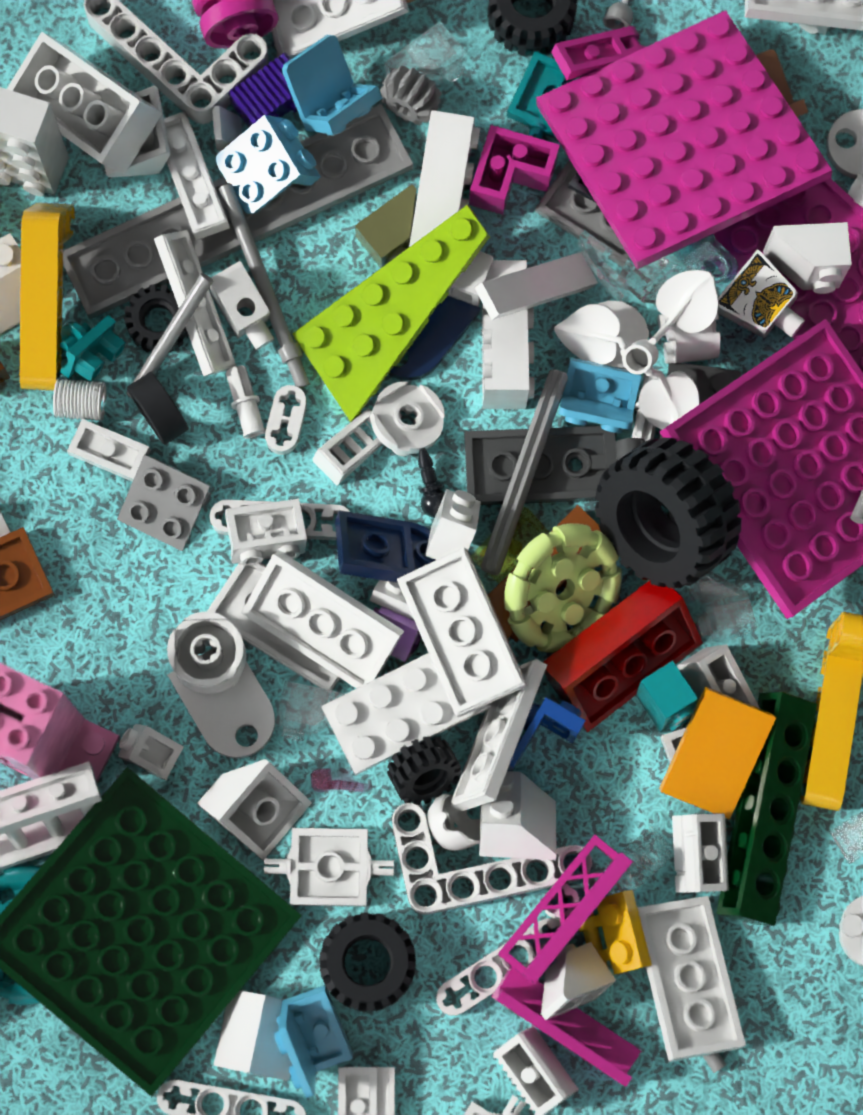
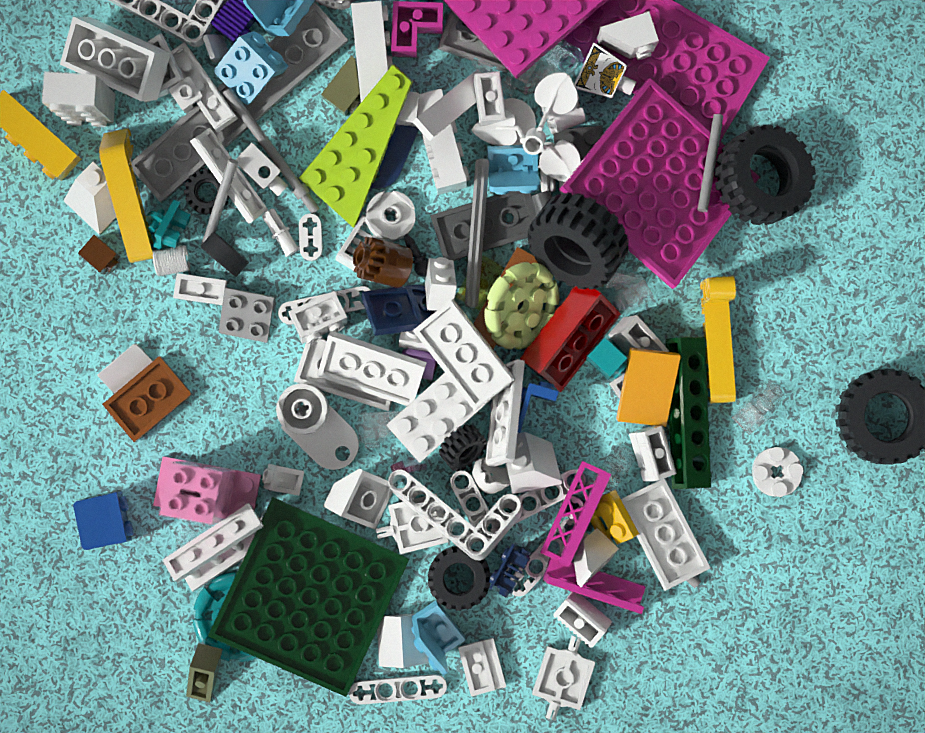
camera: 10 degrees left, 10 degrees up
(167, 177) = (186, 94): none -> white bracket
(379, 475) = (383, 262): none -> reddish brown gear
(382, 869) = (452, 519): none -> white beam
(430, 976) = (511, 557): none -> dark blue hinge
(591, 288) = (489, 98): none -> white slope

